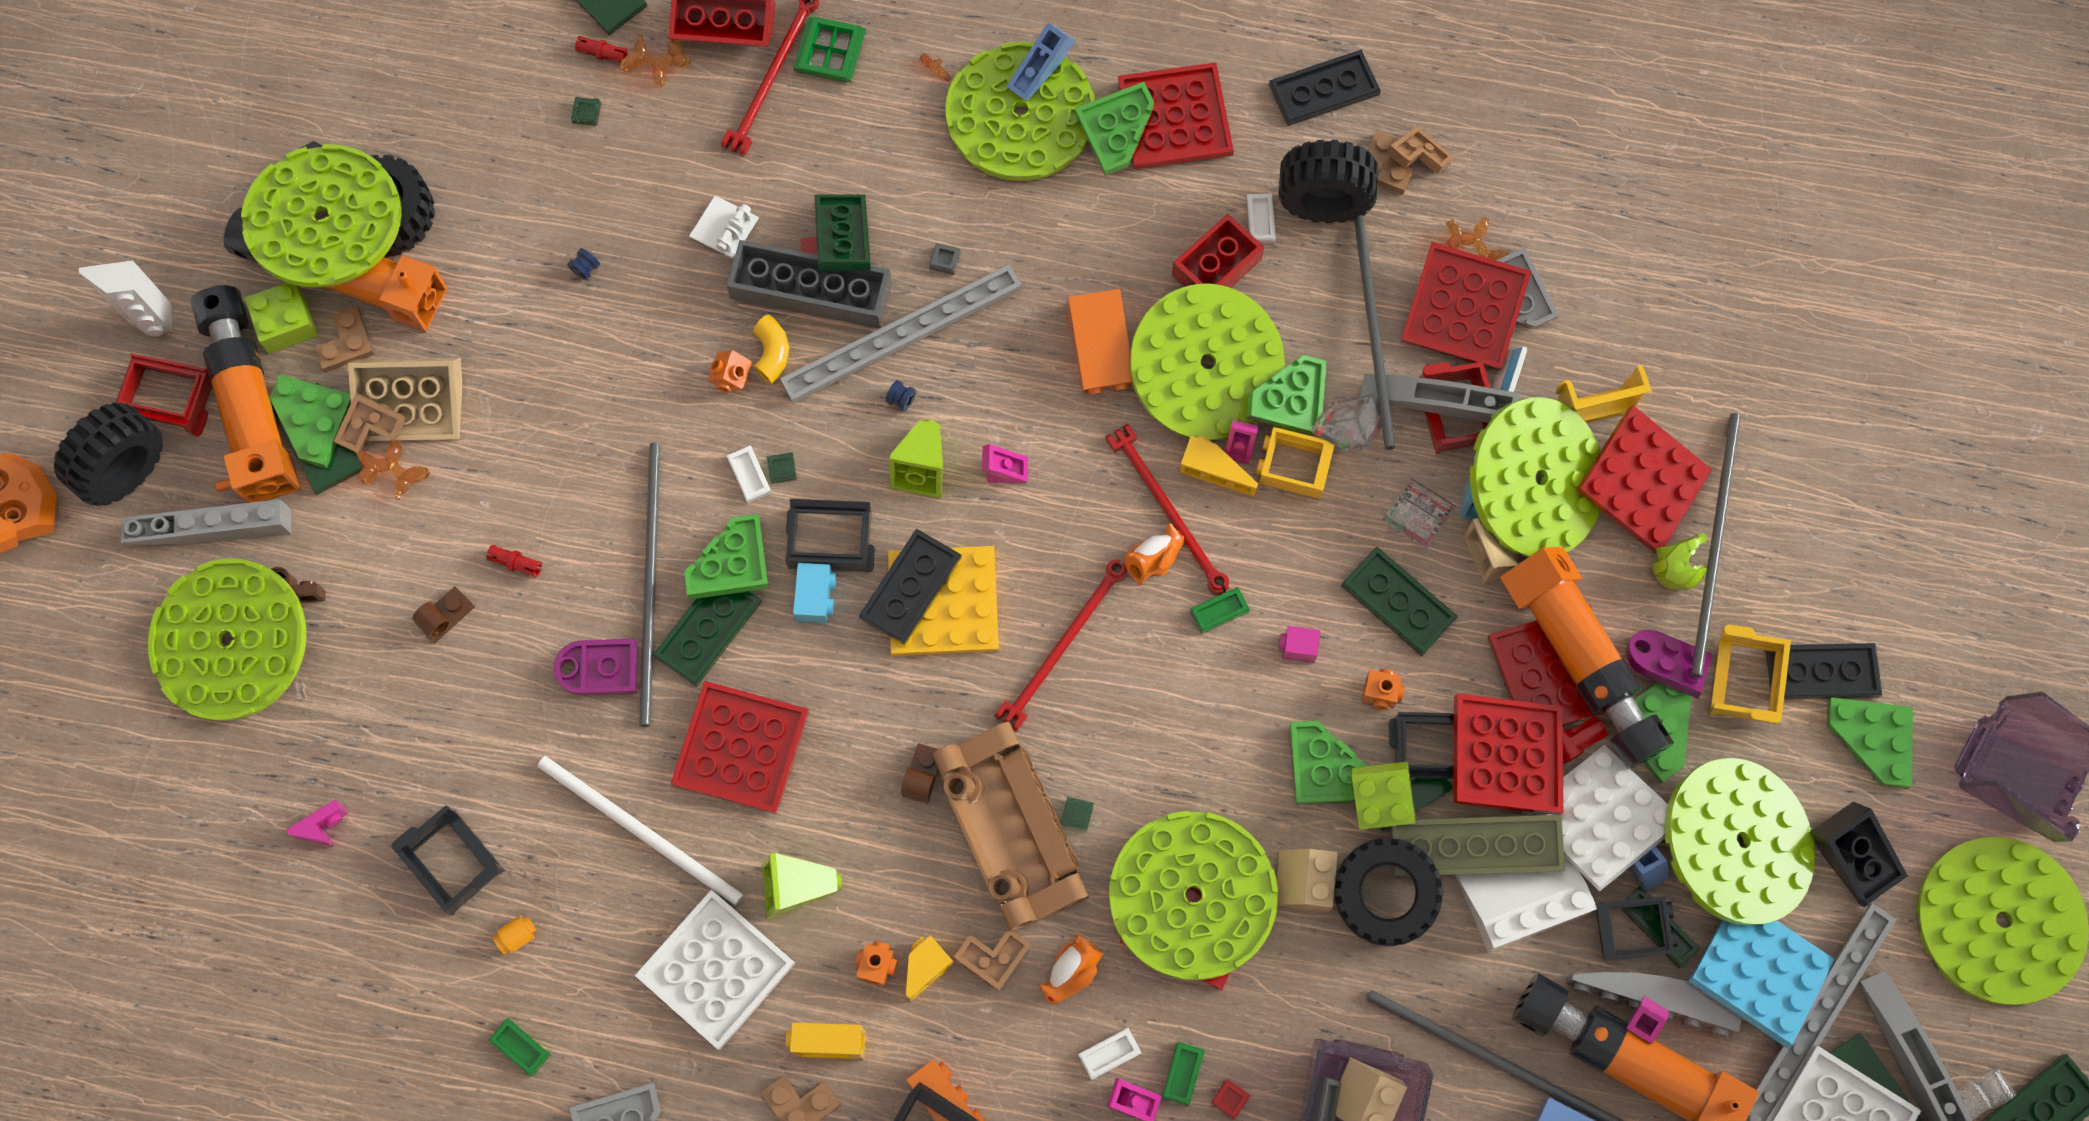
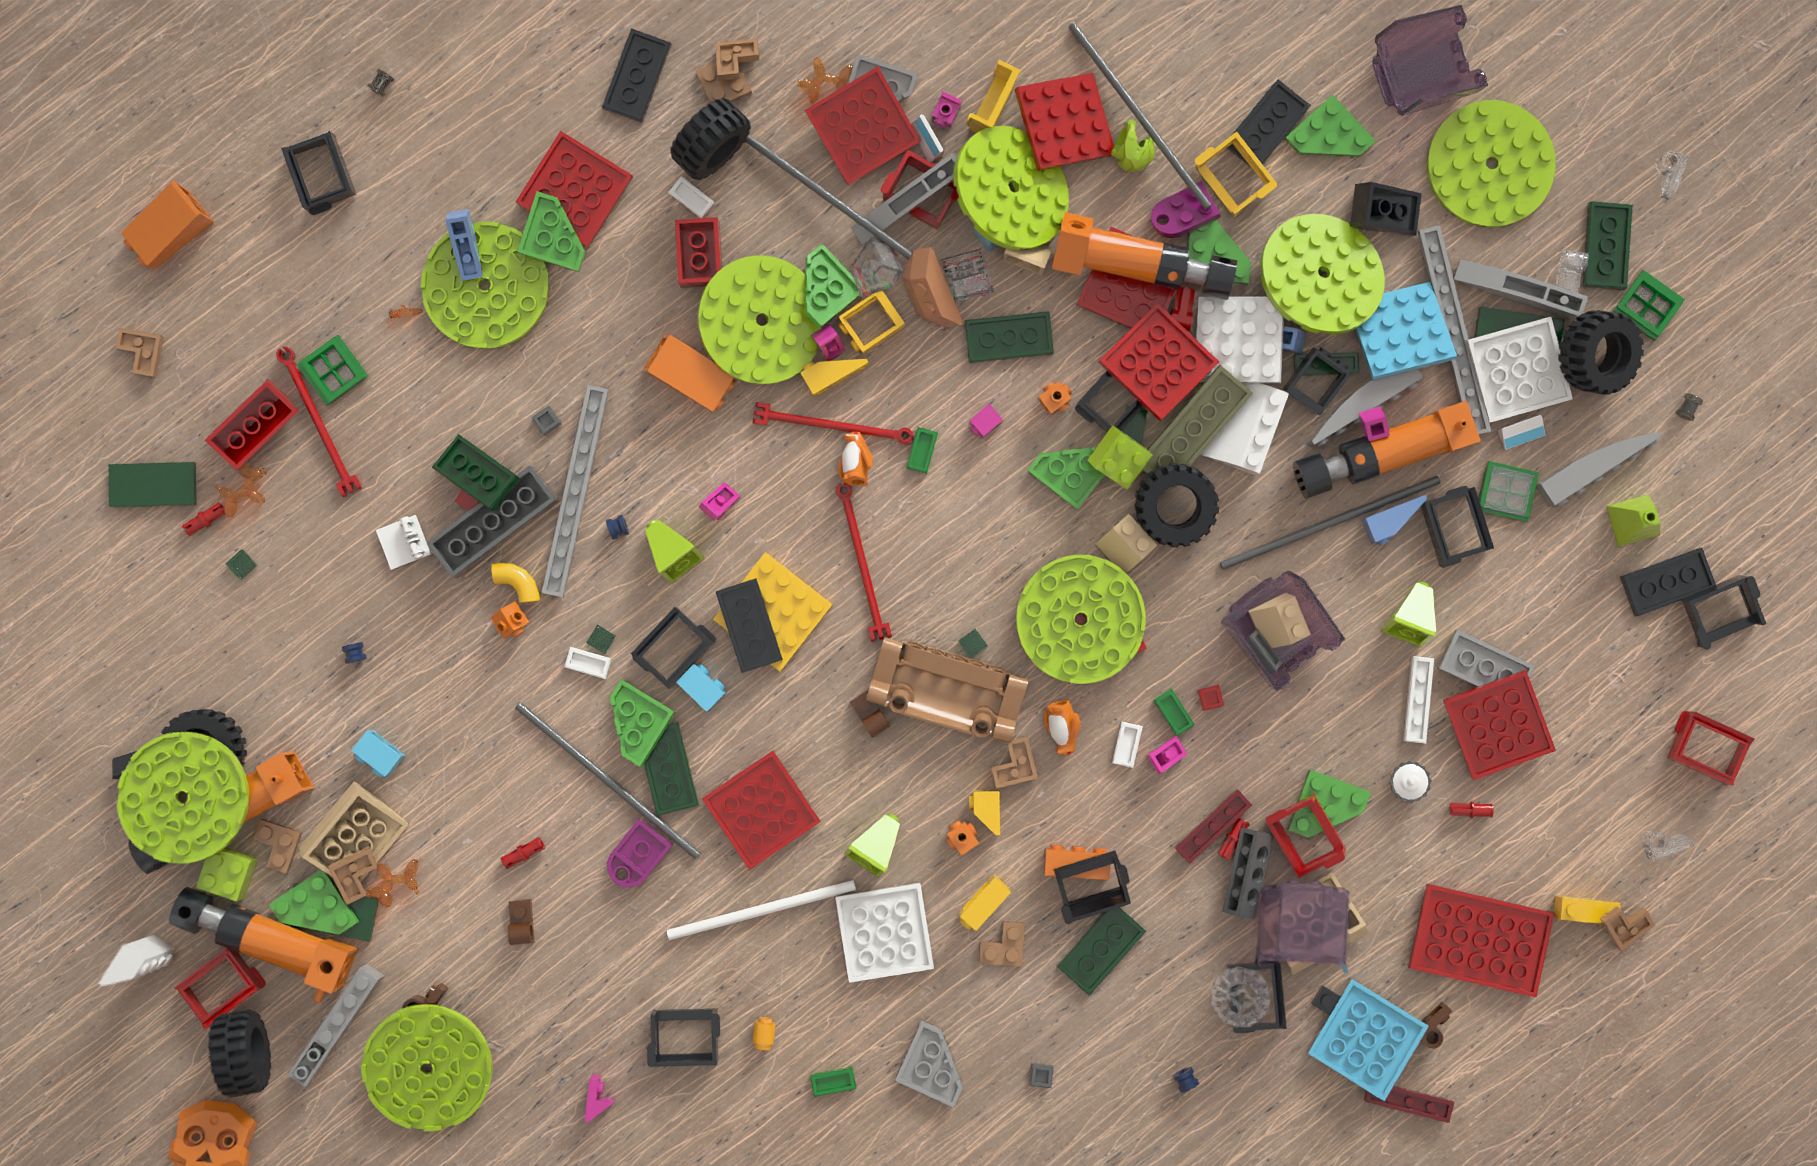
camera: 45 degrees left, 15 degrees up
(504, 358) = (377, 753): none -> medium azure brick
(1375, 486) = (929, 289): none -> nougat wedge
(1545, 376) = (946, 119): none -> dark pink brick

